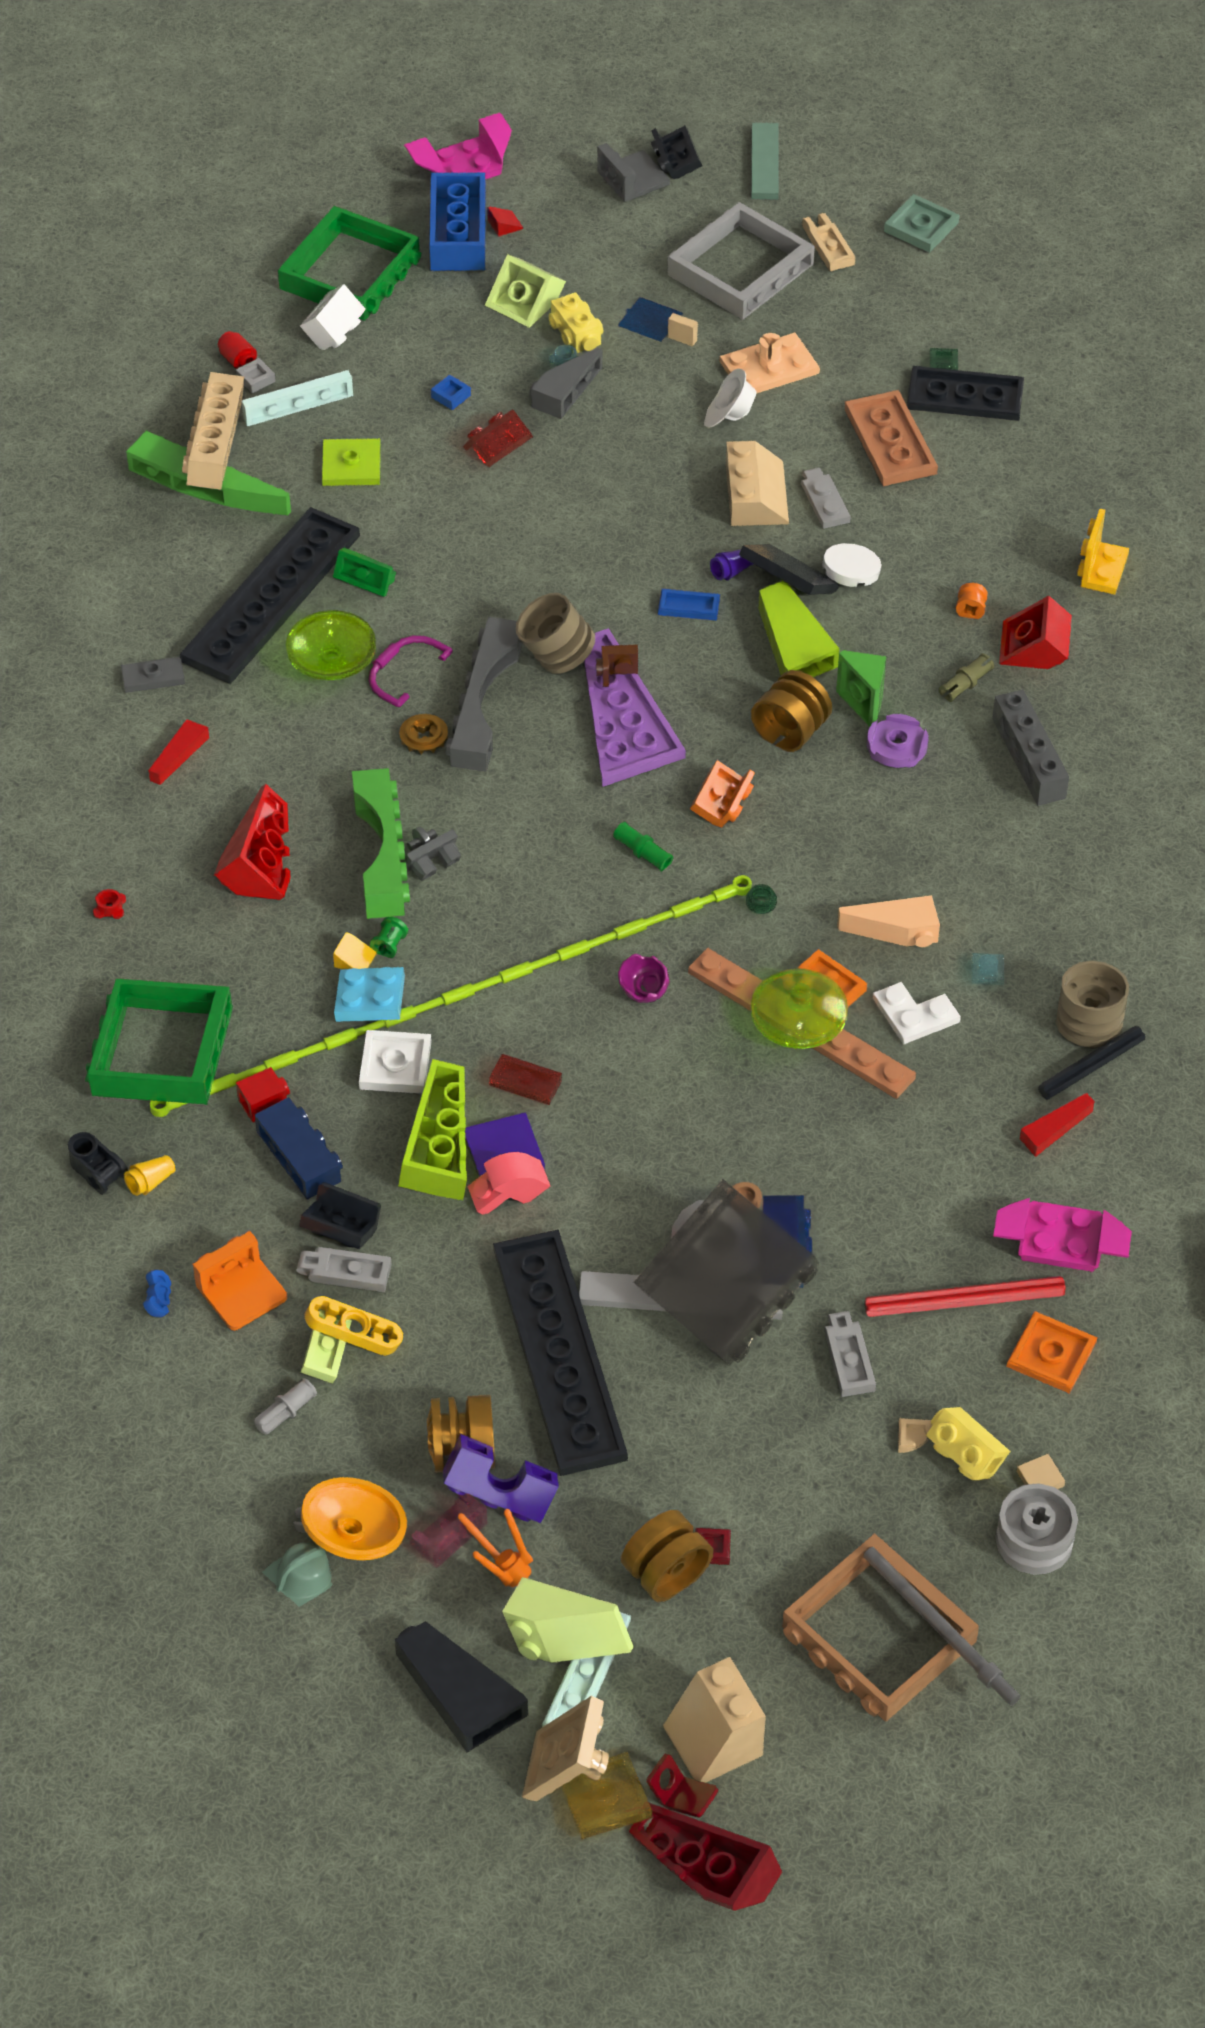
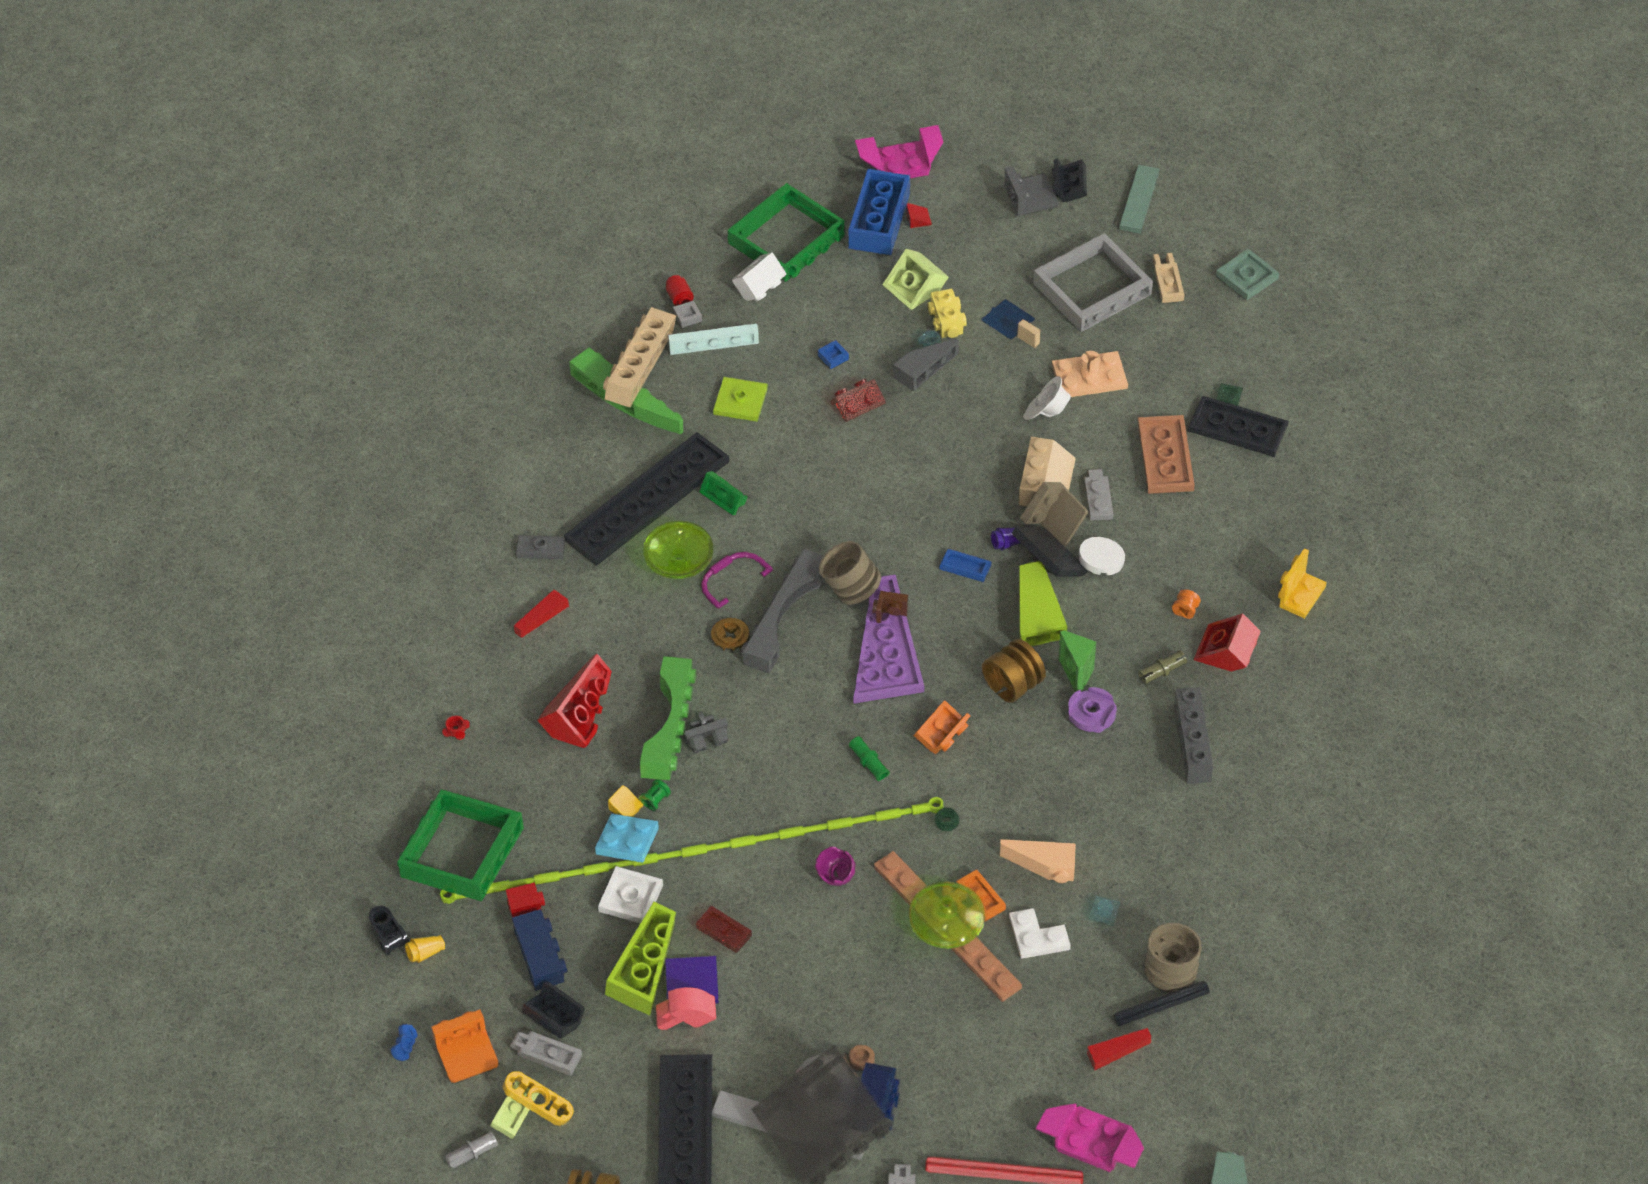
camera: 15 degrees right, 0 degrees up
(784, 521) = (1056, 511): none -> dark tan bracket

